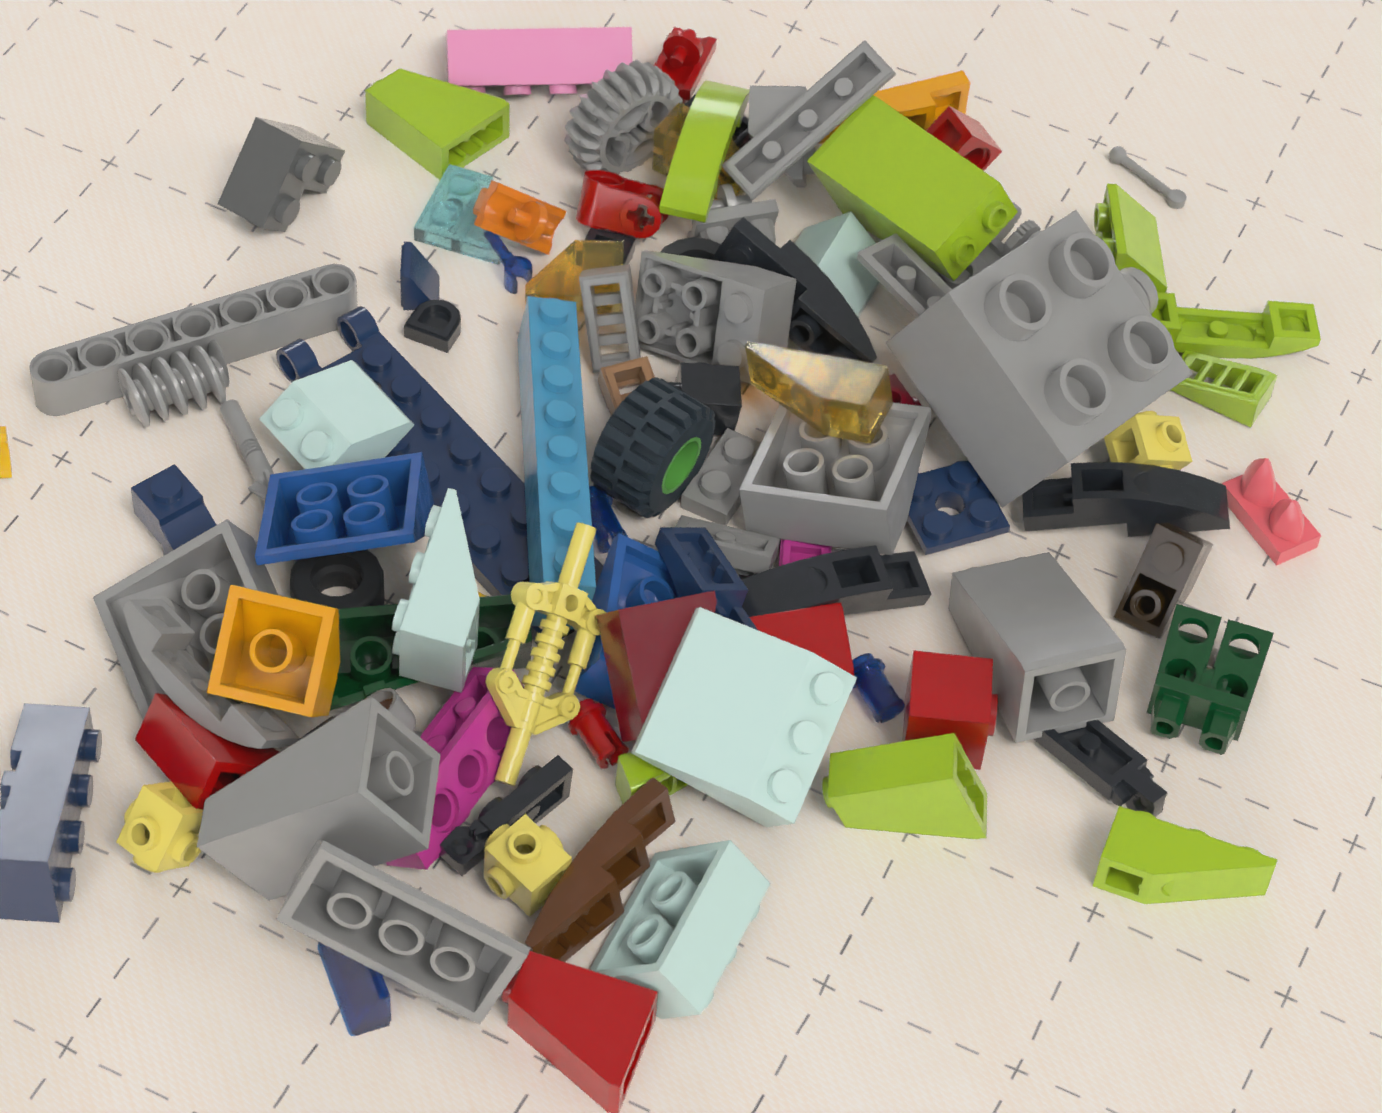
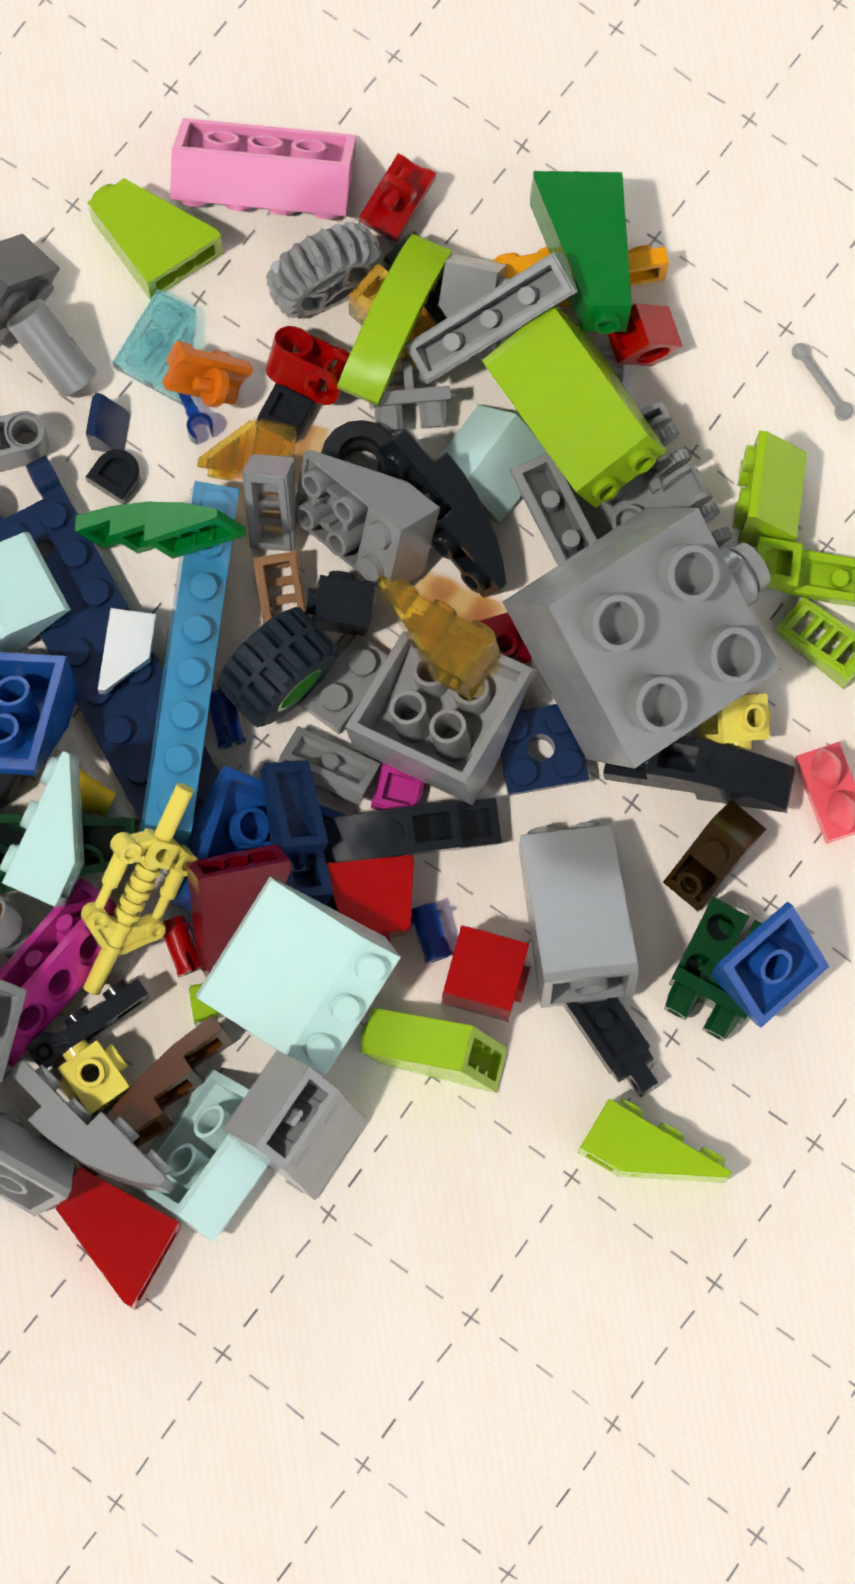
camera: 10 degrees right, 25 degrees up
(350, 210) = (51, 347): none -> light grey pin
(481, 455) = (126, 646): none -> white tile
(499, 329) = (167, 526): none -> green slope
(550, 913) = (101, 1144): none -> light grey slope
(777, 861) = (296, 1123): none -> light grey slope
(918, 87) = (587, 222): none -> green slope
(1259, 645) = (771, 966): none -> blue slope

